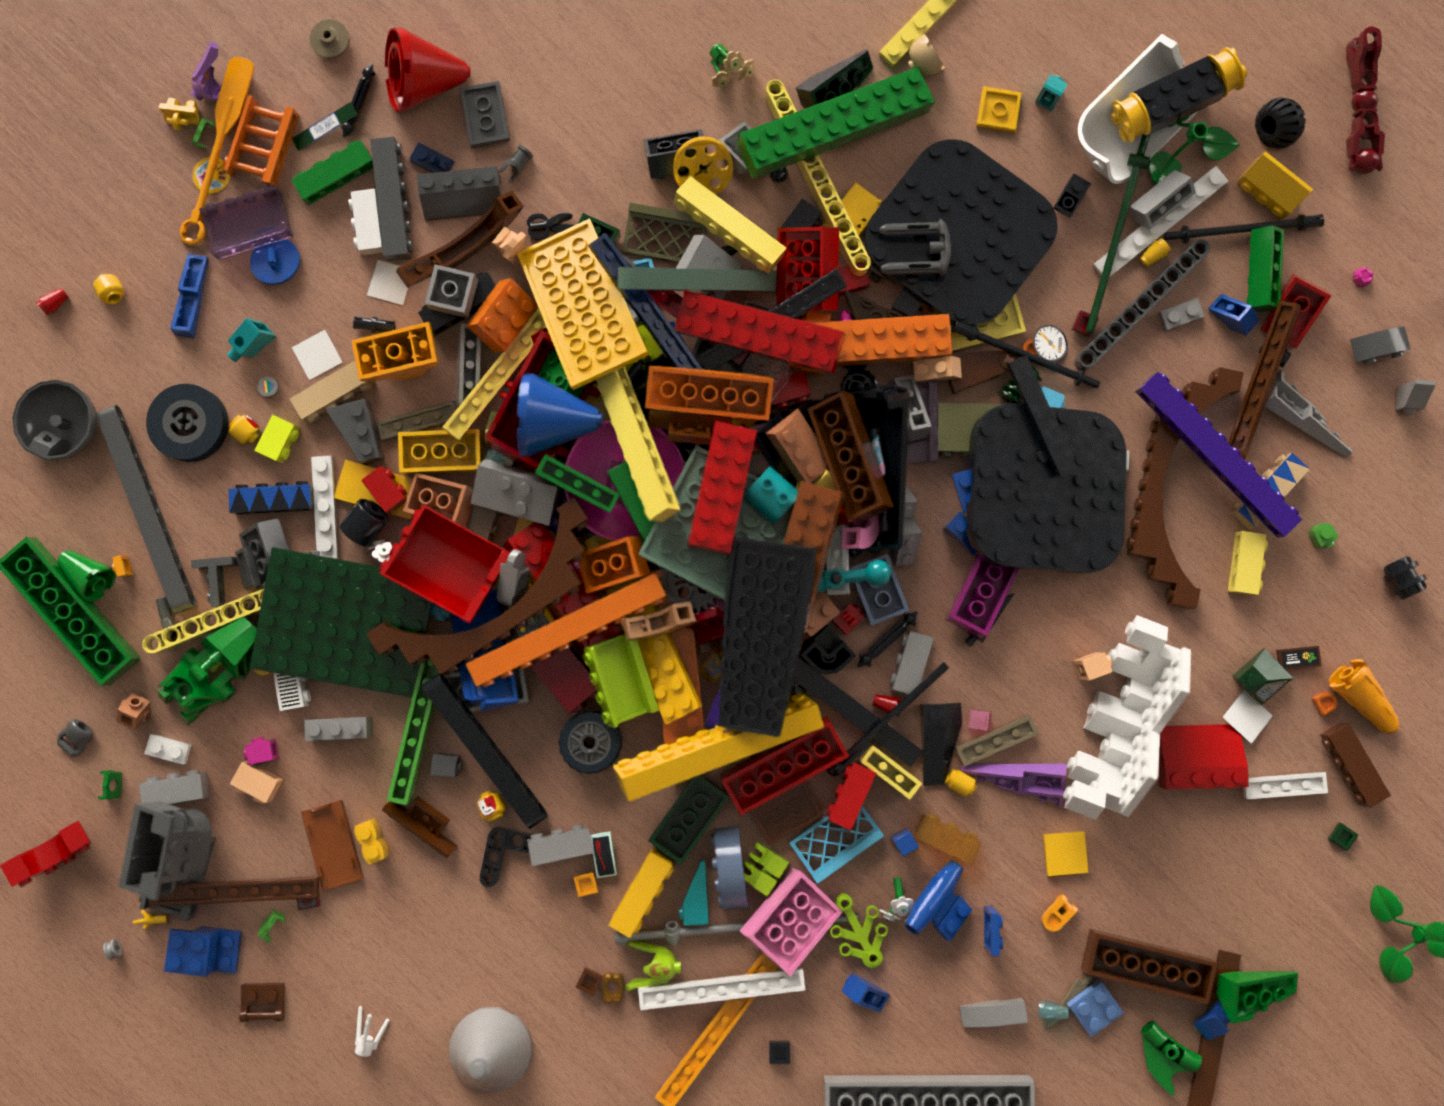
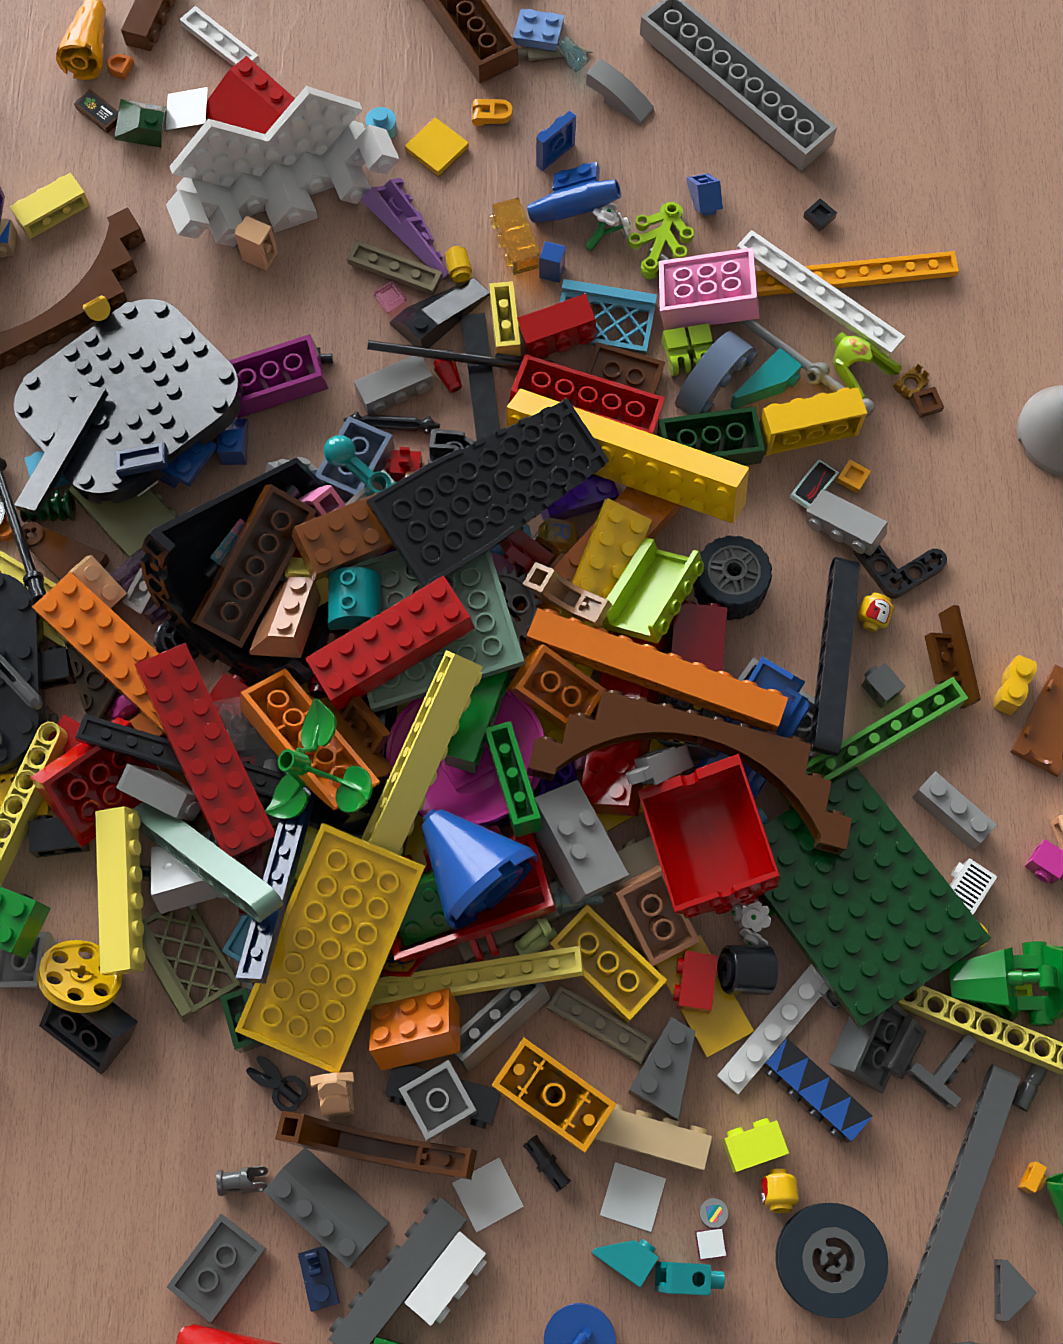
camera: 135 degrees left, 15 degrees down
(84, 497) = (1010, 1290): none -> dark grey slope
(255, 370) = (710, 1243): none -> white tile
(288, 320) = (629, 1259): none -> teal slope
(687, 354) = (290, 797): none -> green plant
(767, 292) = (159, 791): none -> light grey slope
(984, 452) = (141, 459): none -> dark blue tile
(1115, 831) = (382, 118): none -> medium azure piece
(1132, 524) = (97, 309): none -> yellow brick

